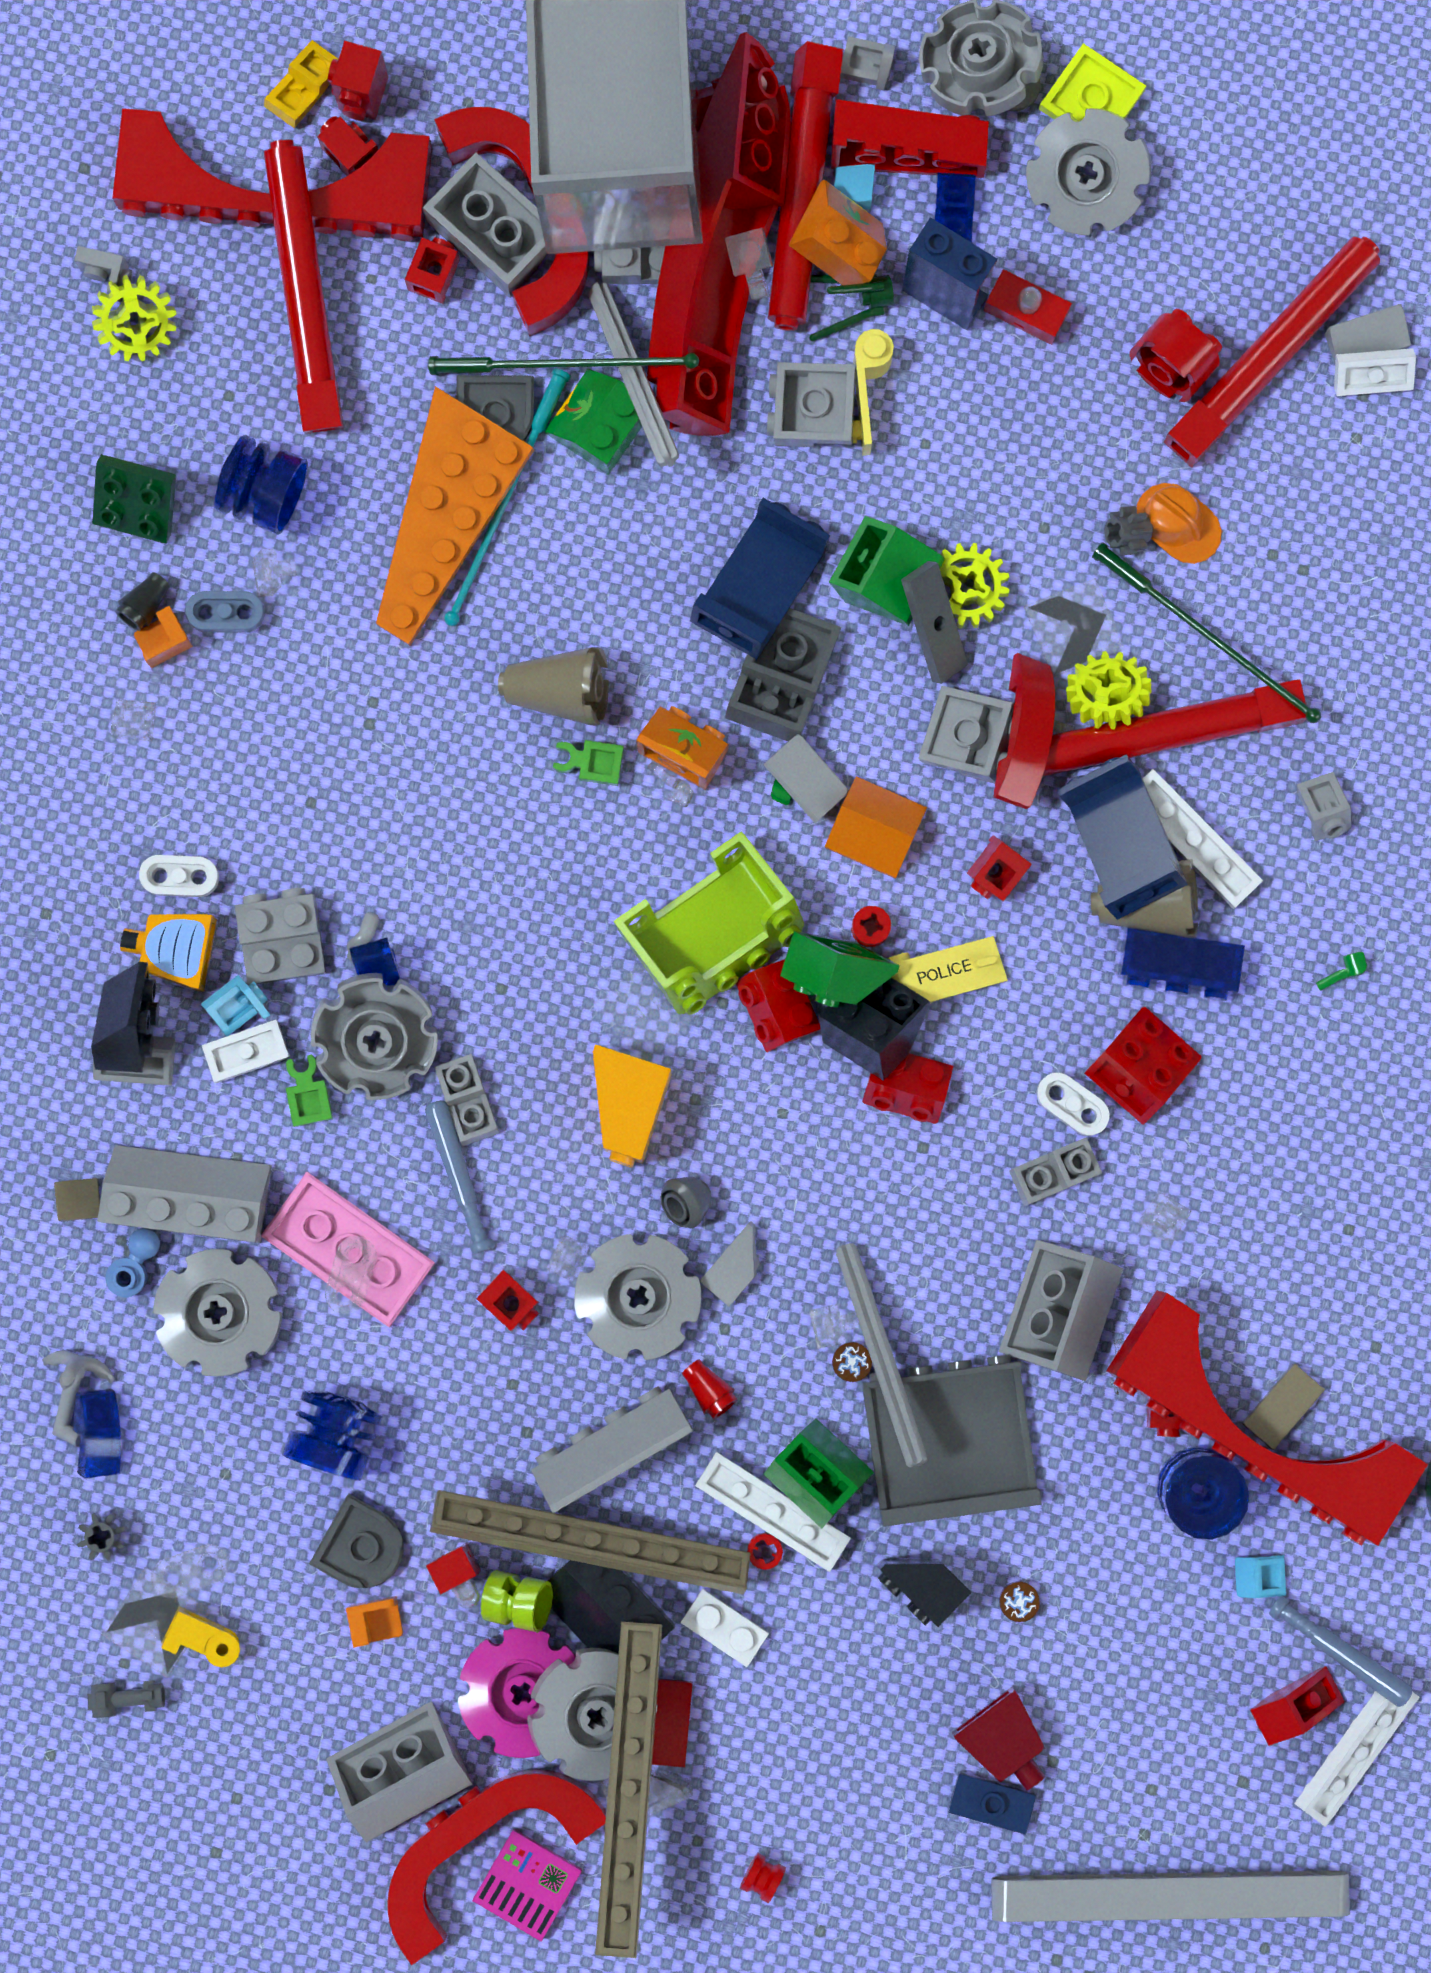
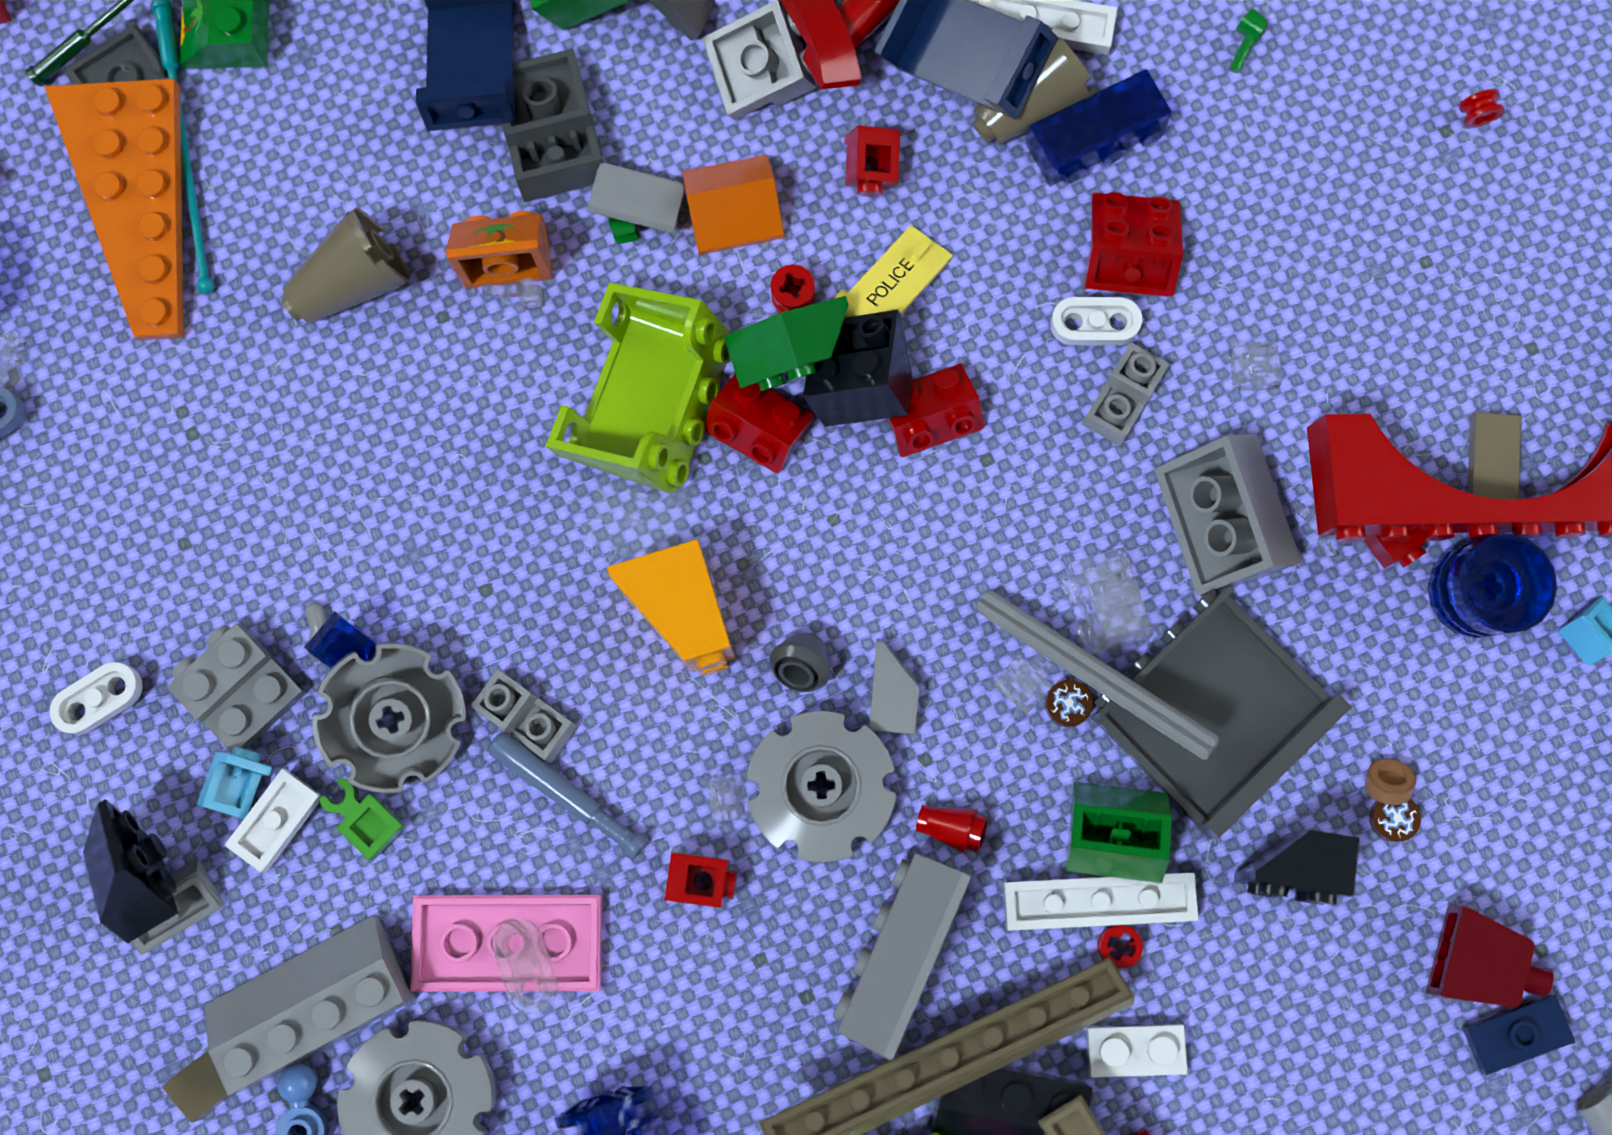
camera: 30 degrees left, 5 degrees down
(174, 947) = (136, 768): torso -> none
(597, 761) = (430, 318): bright green plate -> none
(930, 1311) = (1107, 602): none -> clear brick
(1033, 1574) = (1390, 781): none -> medium nougat tile

